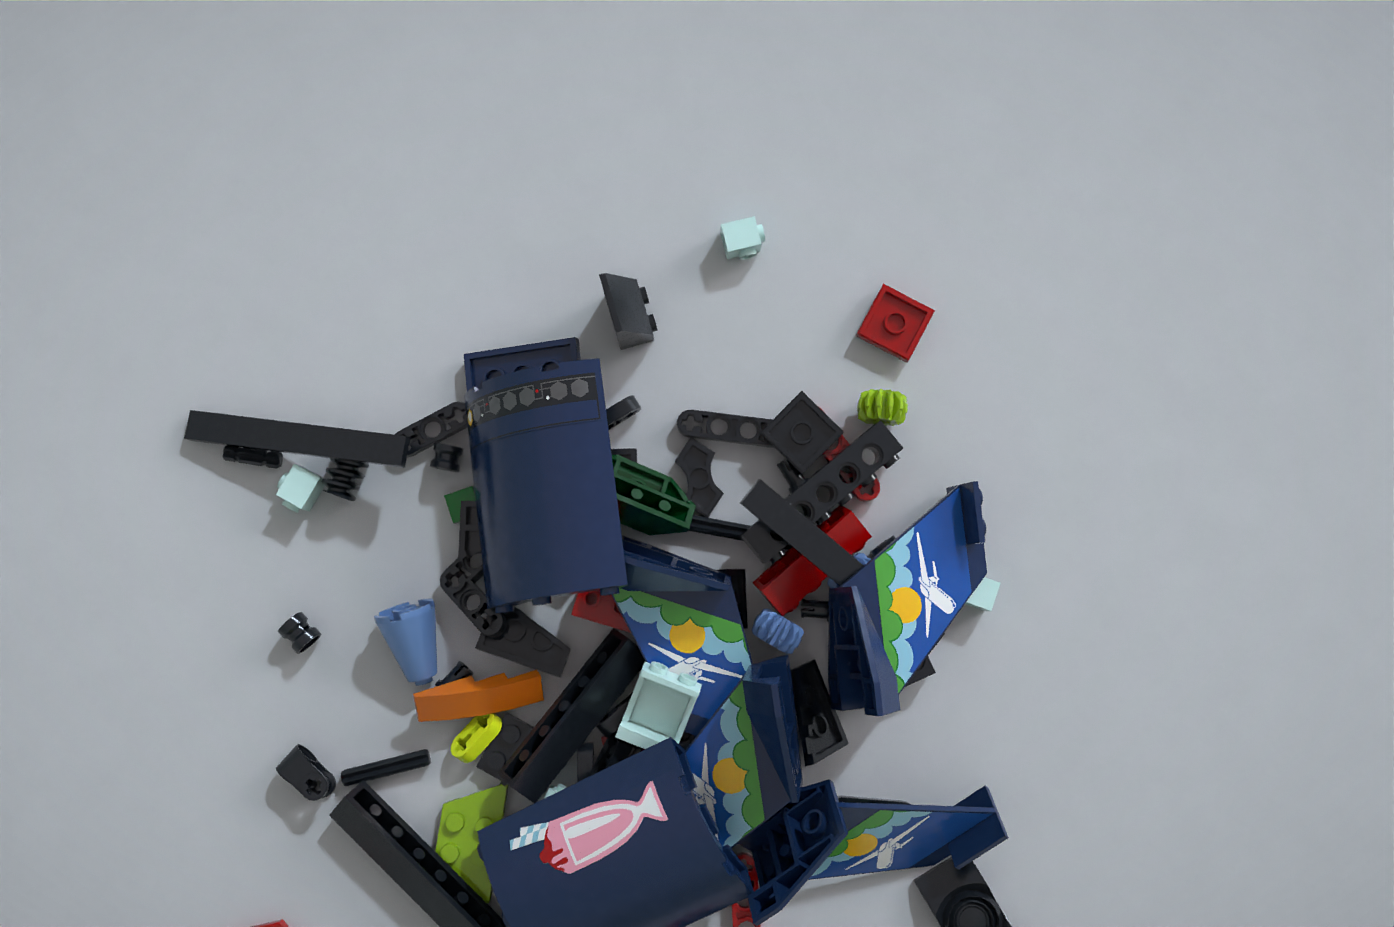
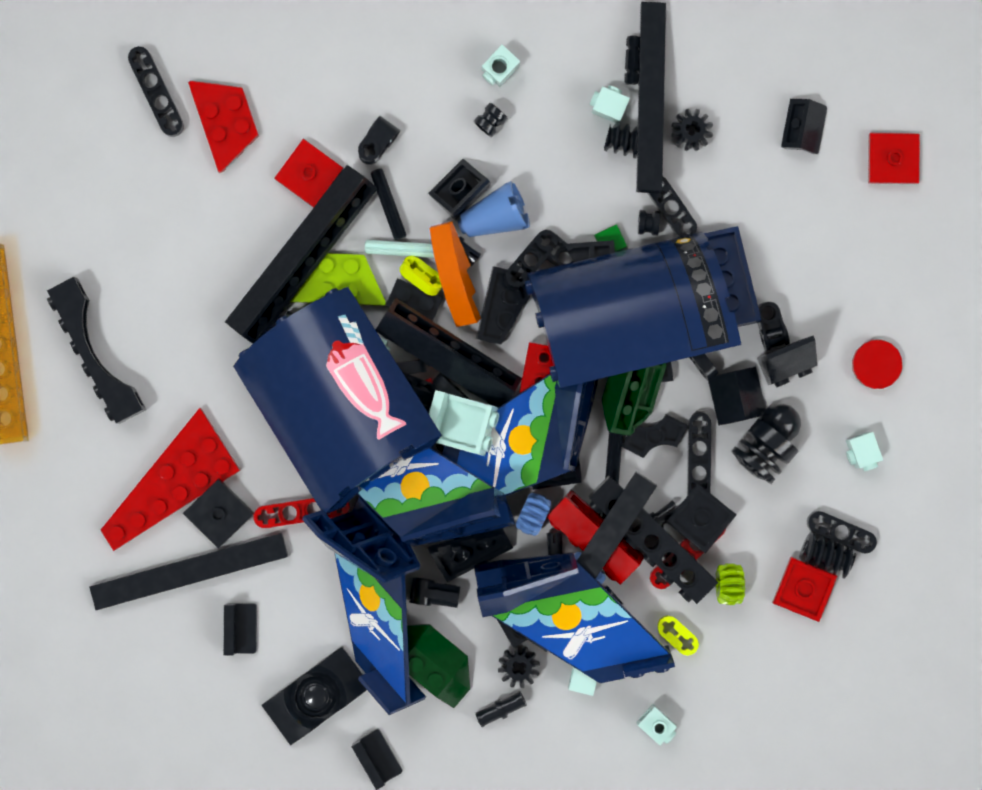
camera: 90 degrees right, 5 degrees up
(224, 611) = (502, 55): none -> light aqua brick
(334, 864) = (308, 173): none -> red plate
(343, 406) = (698, 137): none -> black gear
(356, 266) = (804, 125): none -> black panel
(378, 678) = (459, 189): none -> black slope
(408, 169) = (893, 158): none -> red plate
(440, 761) = (399, 248): none -> light aqua axle
(587, 326) = (772, 327): none -> black piece
(643, 213) = (877, 364): none -> red tile
(662, 376) = (737, 396): none -> black slope
(698, 328) = (783, 420): none -> black hair
(730, 350) = (764, 451): none -> black wheel
(849, 260) = (855, 545): none -> black beam
(856, 291) = (828, 554): none -> black piece
(859, 767) = (428, 592): none -> black piece
(940, 480) = (673, 640): none -> neon yellow beam
(946, 768) = (437, 664): none -> dark green wedge
(967, 669) = (518, 675): none -> black gear
(1006, 694) = (501, 709): none -> black pin
(1039, 510) = (657, 725): none -> light aqua brick
(1053, 853) = (377, 758): none -> black panel

